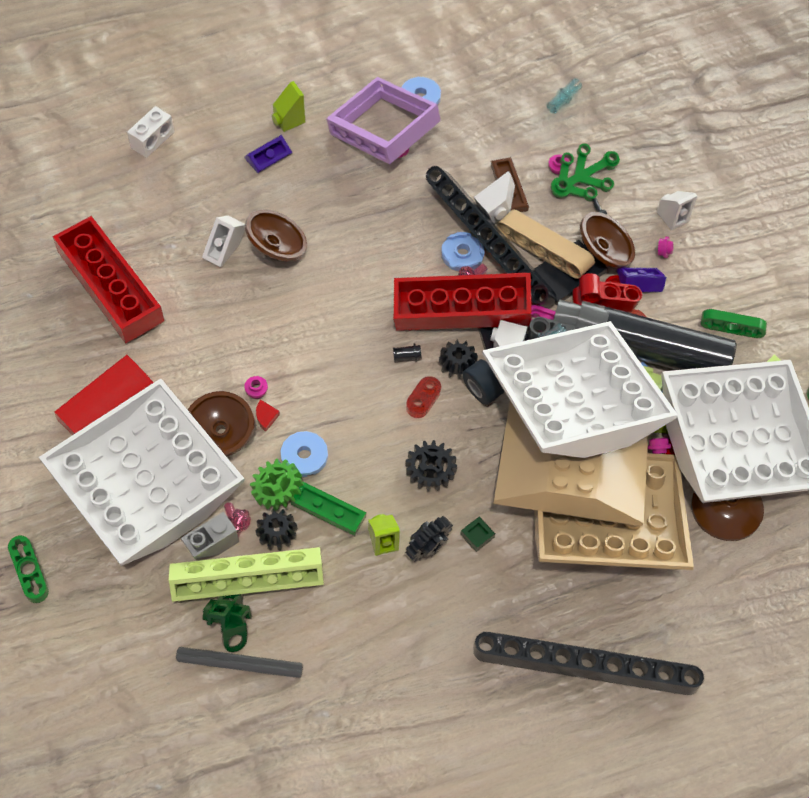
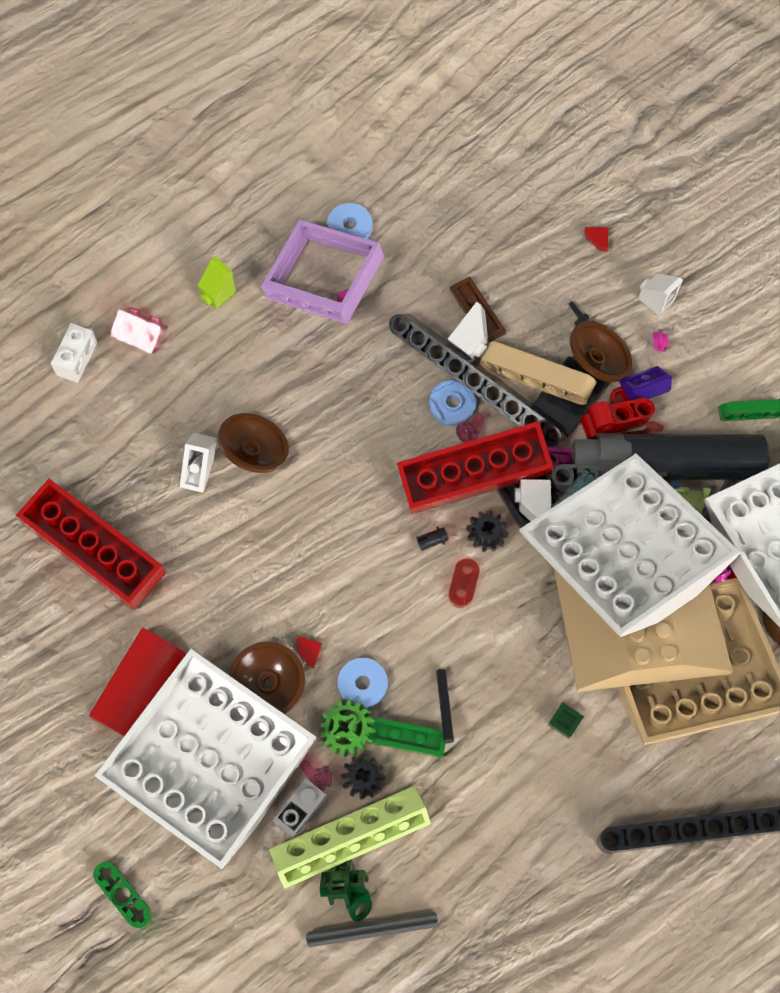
camera: 15 degrees left, 10 degrees up
(210, 129) = (138, 329): none -> clear pink bracket
(256, 392) = (291, 629): dark pink plate -> none
(268, 154) = (209, 342): dark purple slope -> none
(370, 491) = (445, 706): none -> black bar
(384, 534) = (473, 749): lime slope -> none
(429, 538) = (522, 745): black gear -> none
(431, 465) = (504, 666): black gear -> none
(482, 382) = (520, 553): black wheel -> none
(554, 163) = (521, 276): dark pink plate -> none
(564, 95) = (503, 185): clear light blue pin -> none
(583, 175) = (550, 277): green plant -> none
(635, 154) = (598, 237): none -> red tile

